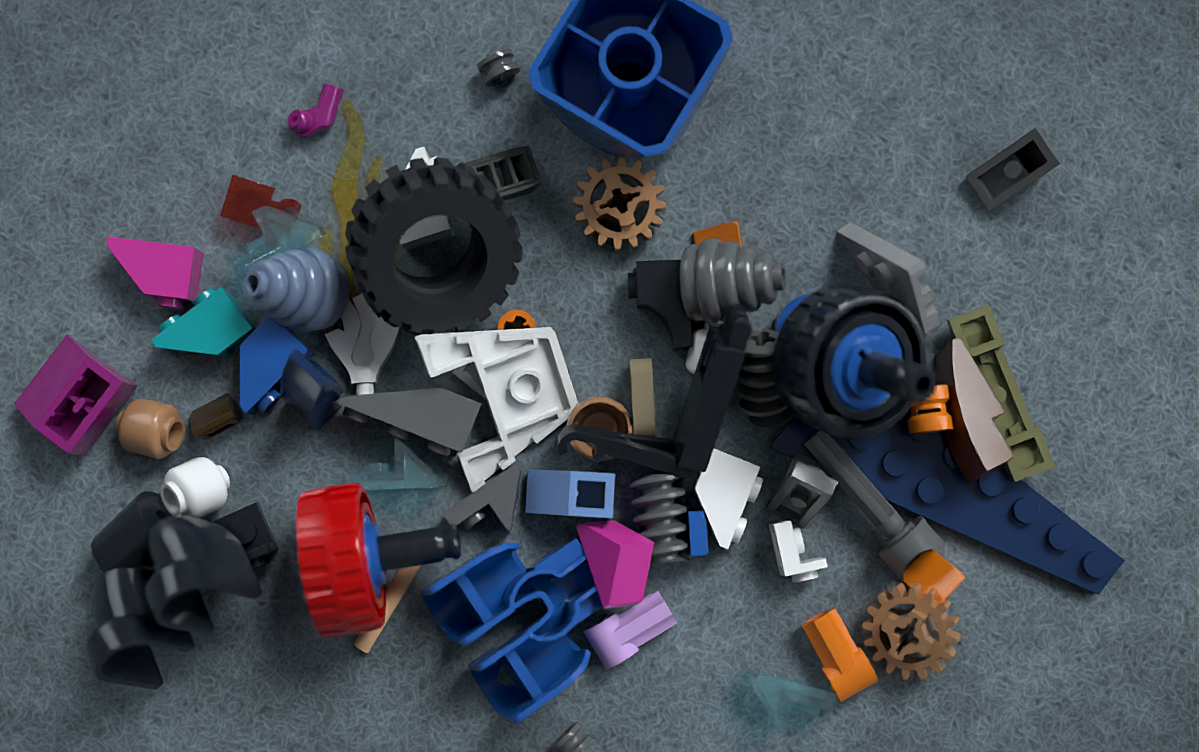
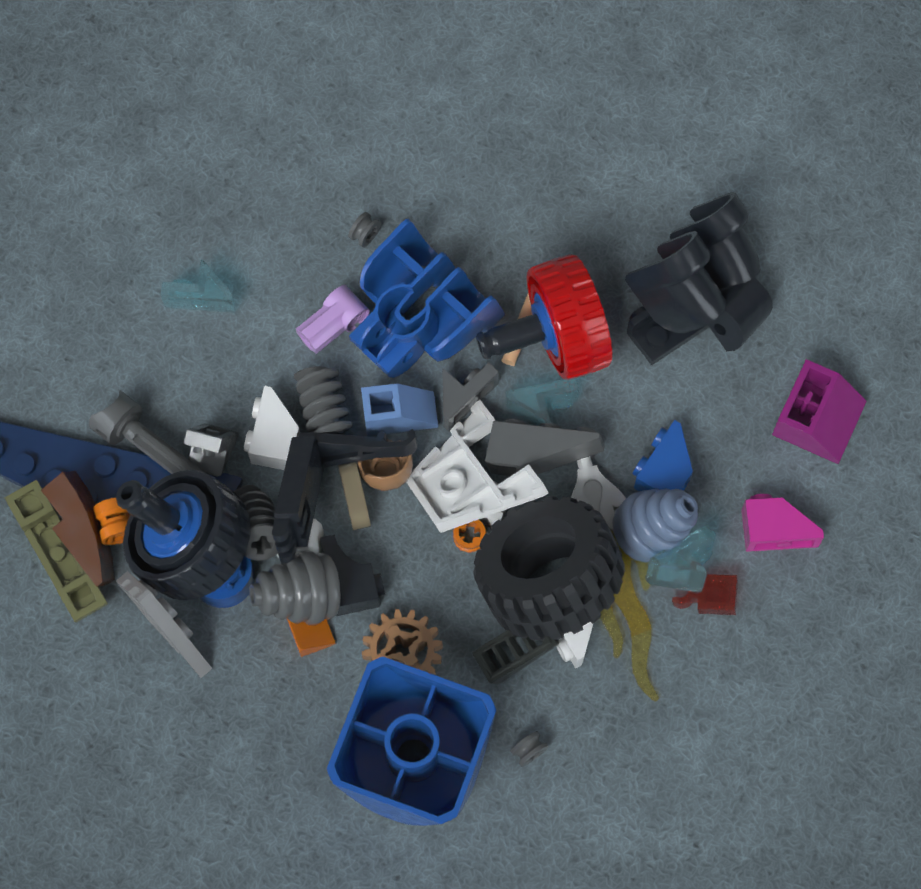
camera: 170 degrees right, 15 degrees down
(150, 428) = (750, 399): medium nougat head -> none
(195, 488) = (702, 359): white head -> none
(209, 329) = (723, 483): teal slope -> none
(215, 417) = (702, 419): dark brown slope -> none
(310, 389) = (623, 443): dark blue slope -> none
(319, 118) = (675, 680): magenta arm -> none
(617, 561) = (351, 360): dark pink slope -> none
(697, 533) = (291, 398): blue tile -> none
(787, 547) = (215, 403): white bracket -> none
(841, 660) = (161, 327): orange piece -> none
(927, 638) = (89, 351): medium nougat gear -> none
(933, 572) = (91, 398): orange slope -> none
(1014, 168) = (66, 739): dark grey slope -> none

